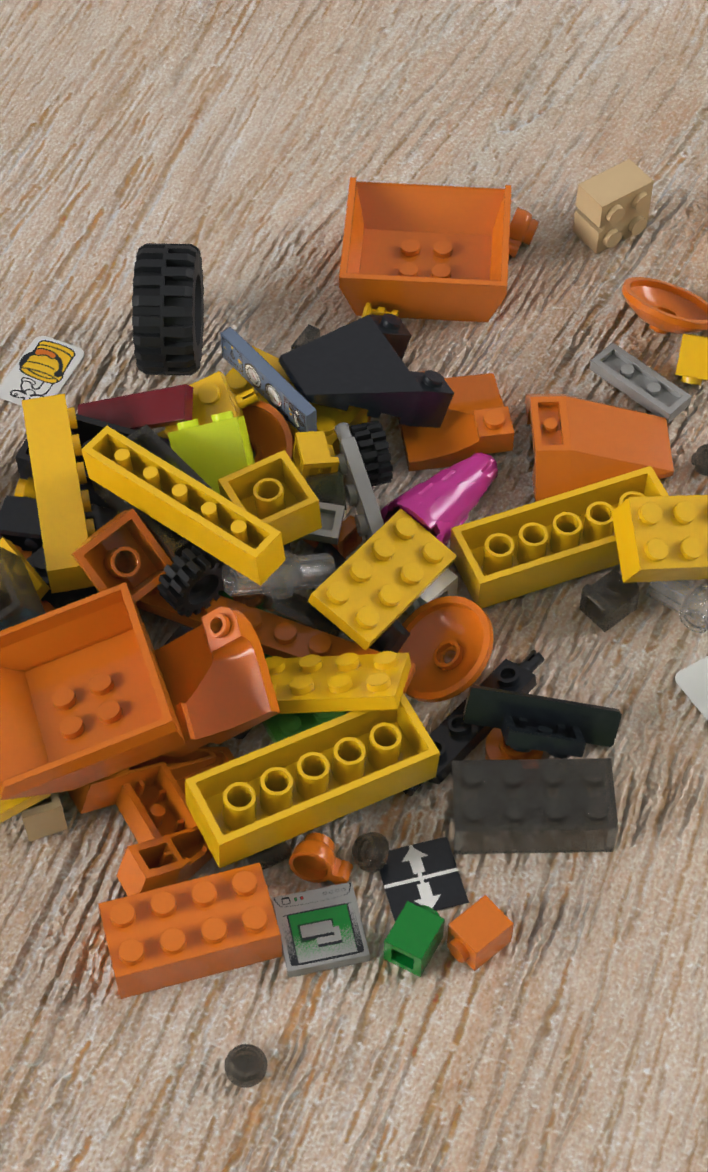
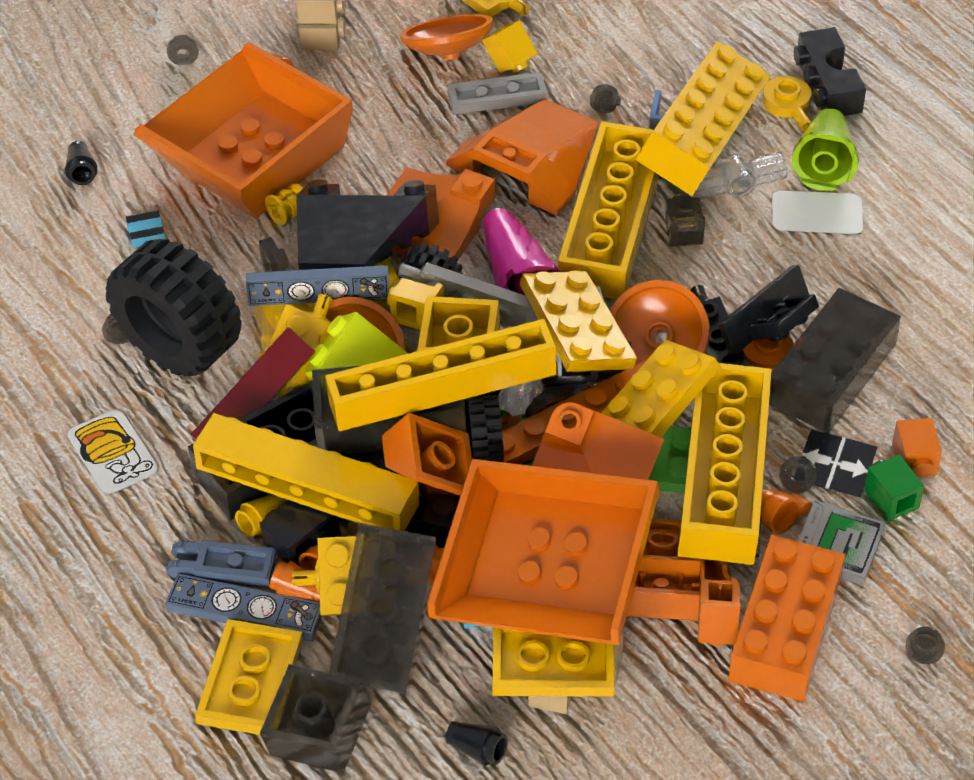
camera: 55 degrees left, 5 degrees down
(279, 255) = (144, 228): none -> tile
(309, 176) = (80, 164): none -> black cone
(490, 160) = (182, 42): none -> clear smoke plate

